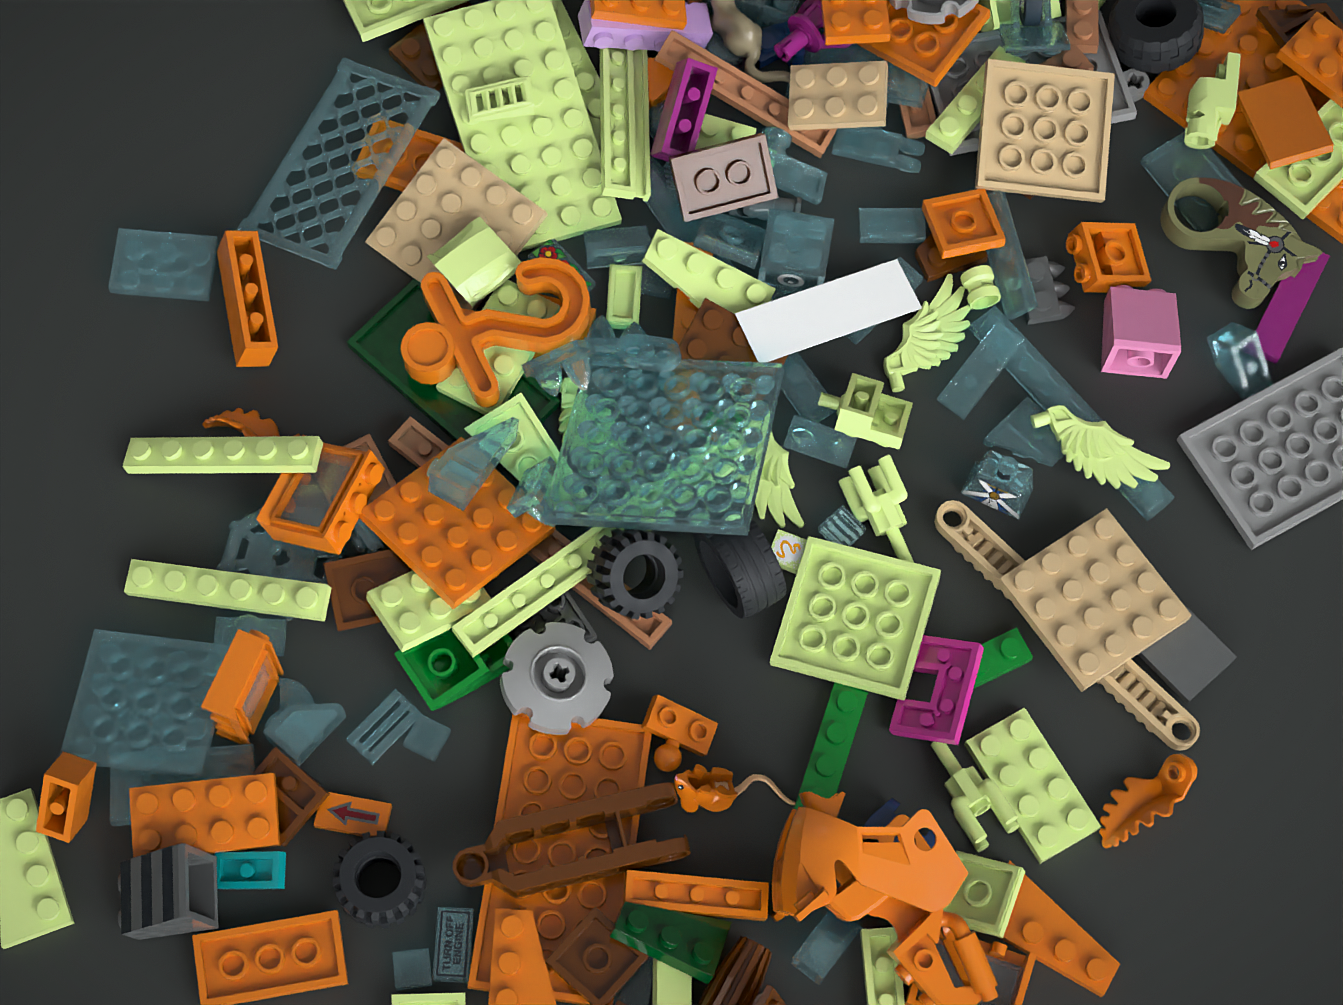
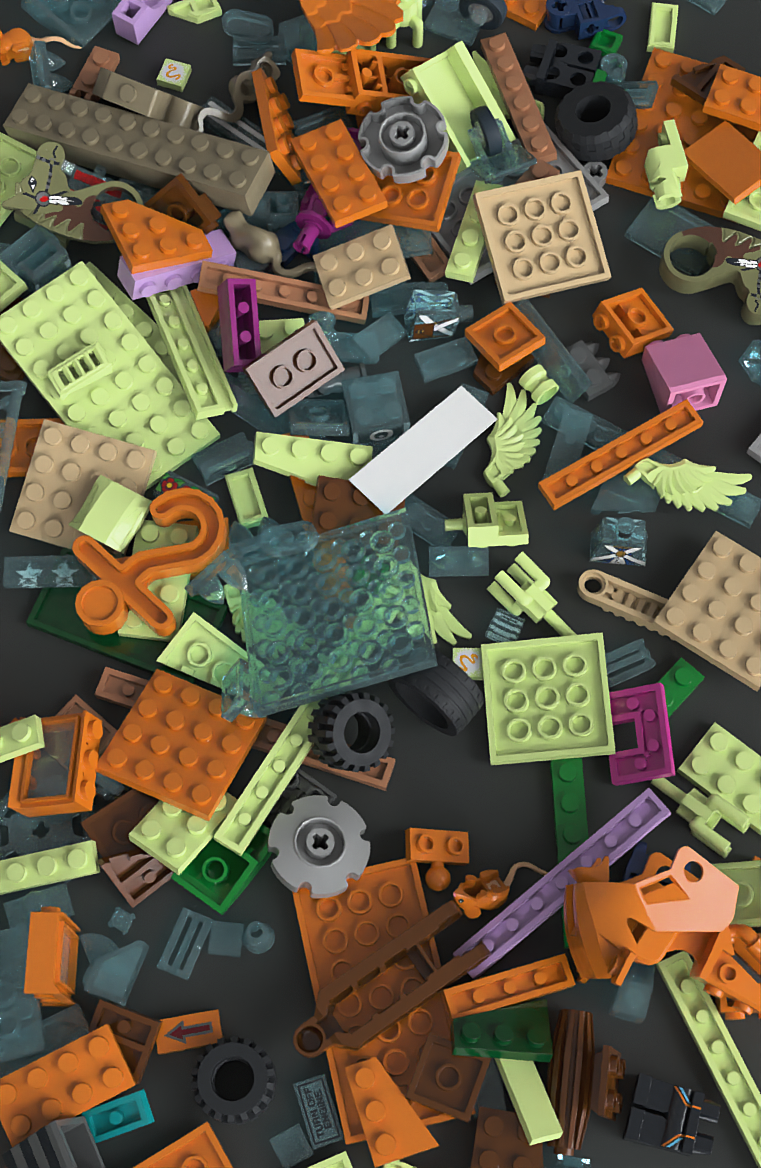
camera: 15 degrees left, 0 degrees up
(328, 678) = (121, 920): none -> clear light blue piece
(360, 636) = (135, 874): none -> reddish brown wing
(386, 297) = (46, 572): none -> clear light blue tile
(463, 753) = (262, 943): none -> clear light blue cone
(469, 463) = (174, 690): clear light blue slope -> none
(653, 284) = (267, 478): clear light blue tile -> none
(767, 818) = (548, 893): none -> lavender plate
(828, 176) = (378, 337): none -> clear light blue tile
(898, 174) = (434, 314): none -> clear light blue torso
(961, 598) = (642, 654): none -> clear light blue tile
(1036, 391) = (620, 454): none -> orange plate

